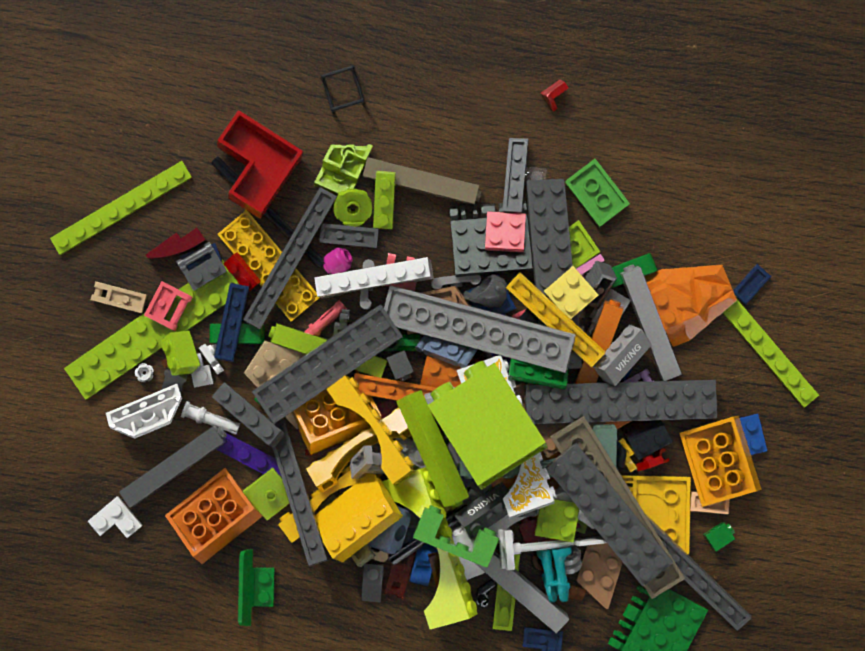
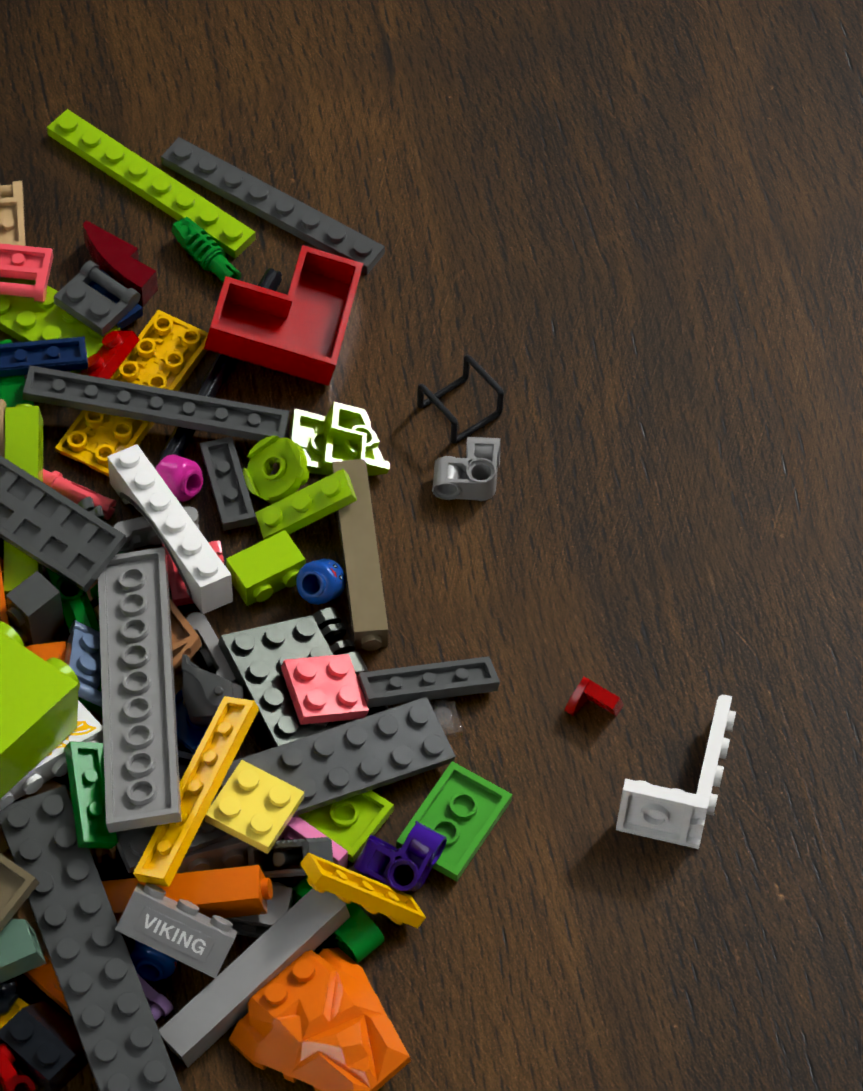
camera: 70 degrees right, 30 degrees down
(163, 143) = (271, 204): none -> dark grey plate
(184, 193) = (203, 249): none -> green hinge
(391, 111) = (458, 476): none -> light grey piece
(412, 234) = (265, 567): none -> lime brick
(433, 209) = (320, 581): none -> blue head
(610, 237) = (385, 861): none -> dark purple piece
(632, 256) = (362, 890): none -> yellow plate
(644, 70) = (673, 813): none -> white bracket

